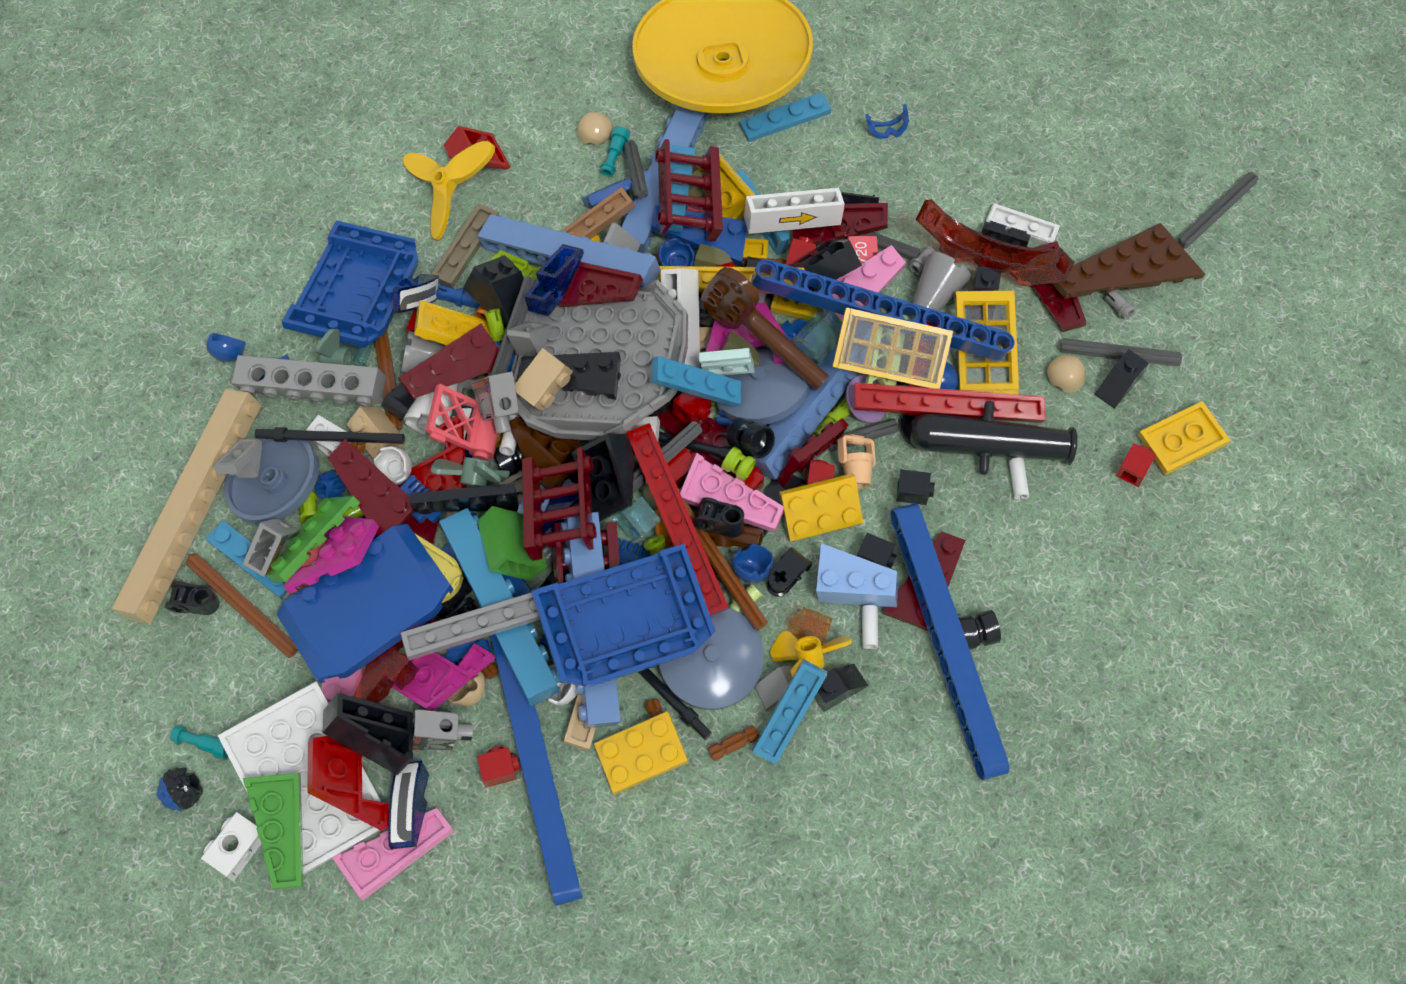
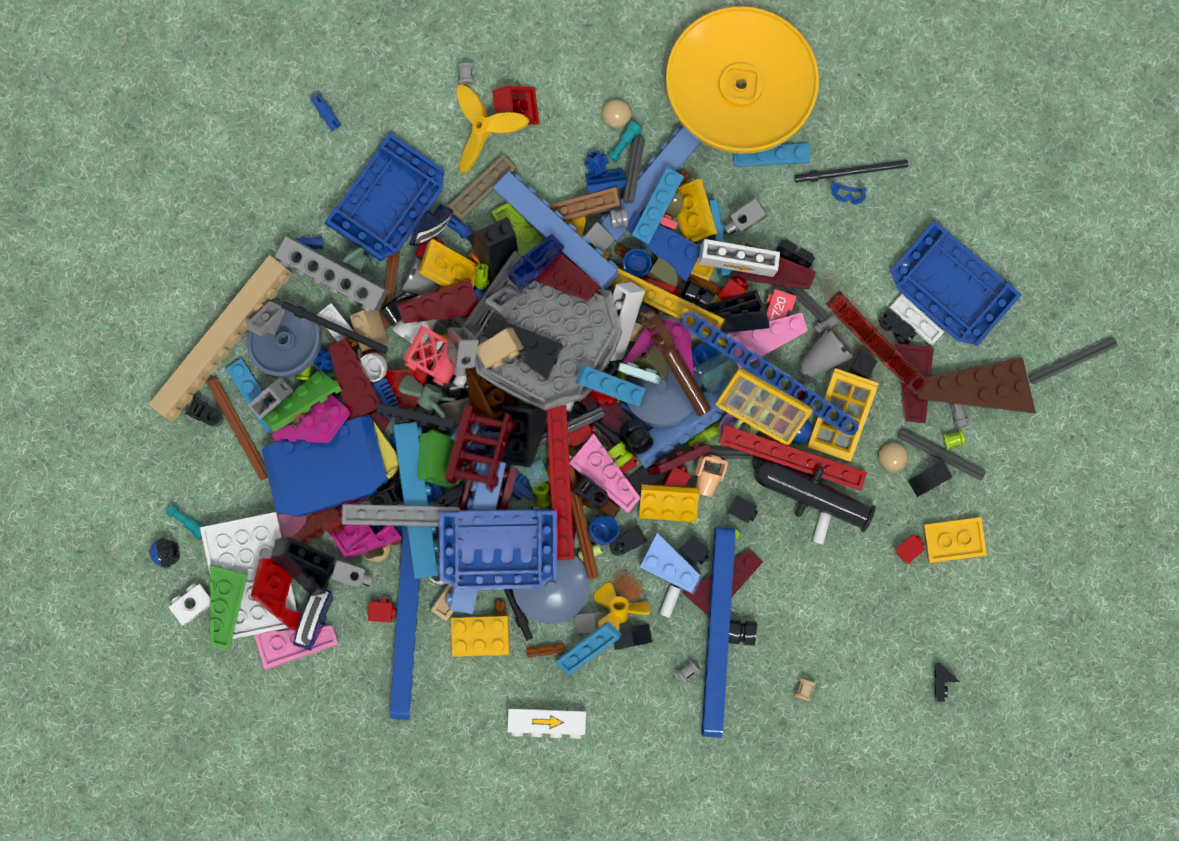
camera: 15 degrees right, 20 degrees up
(224, 347) = (275, 208): blue hair -> none
(254, 226) = (325, 112): none -> blue pin
(407, 138) = (466, 73): none -> light grey bush
(589, 178) = (596, 162): none -> blue gear
(637, 216) = (619, 218): none -> light grey wheel
(709, 183) = (683, 214): dark red fence -> none
(770, 834) = (546, 722): none -> white brick
(787, 172) = (754, 212): none -> light grey torso
(843, 121) = (814, 176): none -> black bar
(930, 704) = (688, 672): none -> light grey bush
(1047, 176) = (953, 286): none -> blue slope
(1087, 674) = (804, 689): none -> tan bush
(1127, 330) = (954, 439): none -> lime bush
(1249, 599) = (941, 676): none -> black slope

